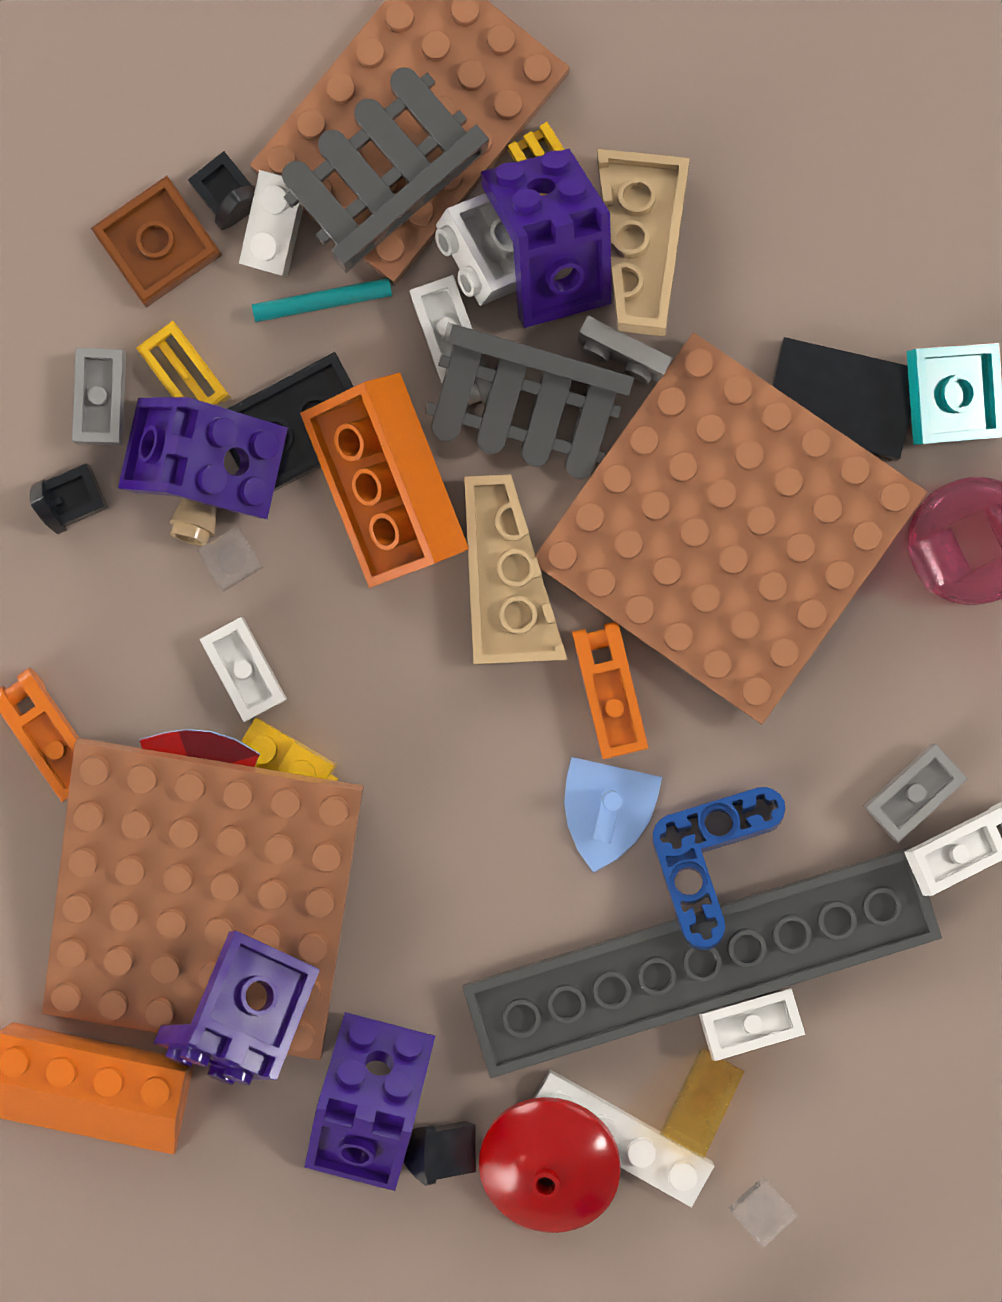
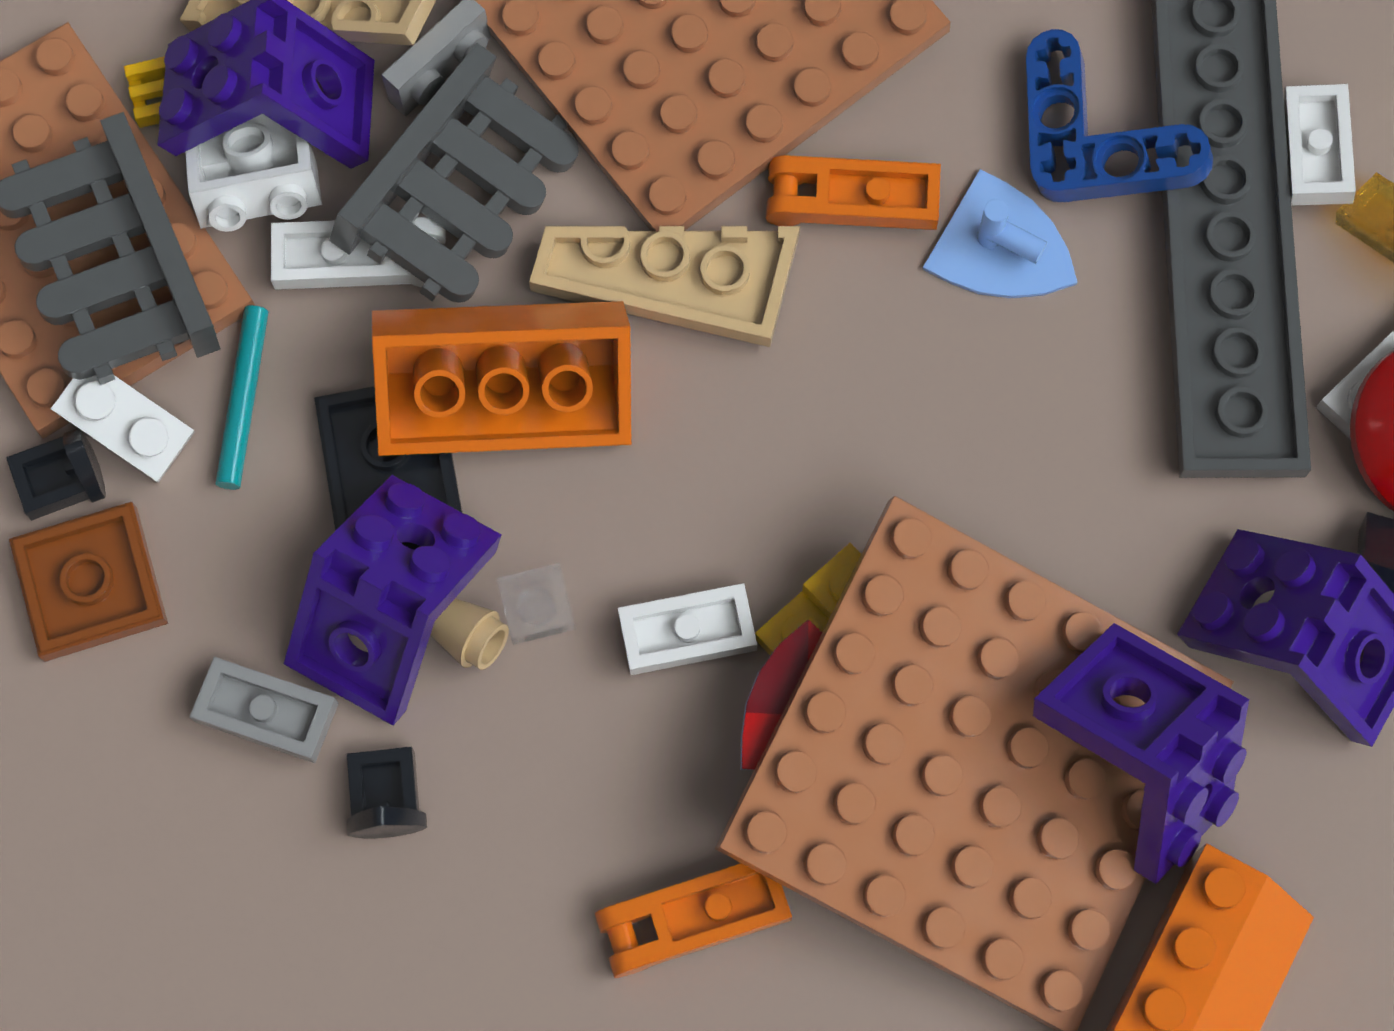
camera: 70 degrees left, 15 degrees down
(159, 340) = (249, 579): yellow tile -> none

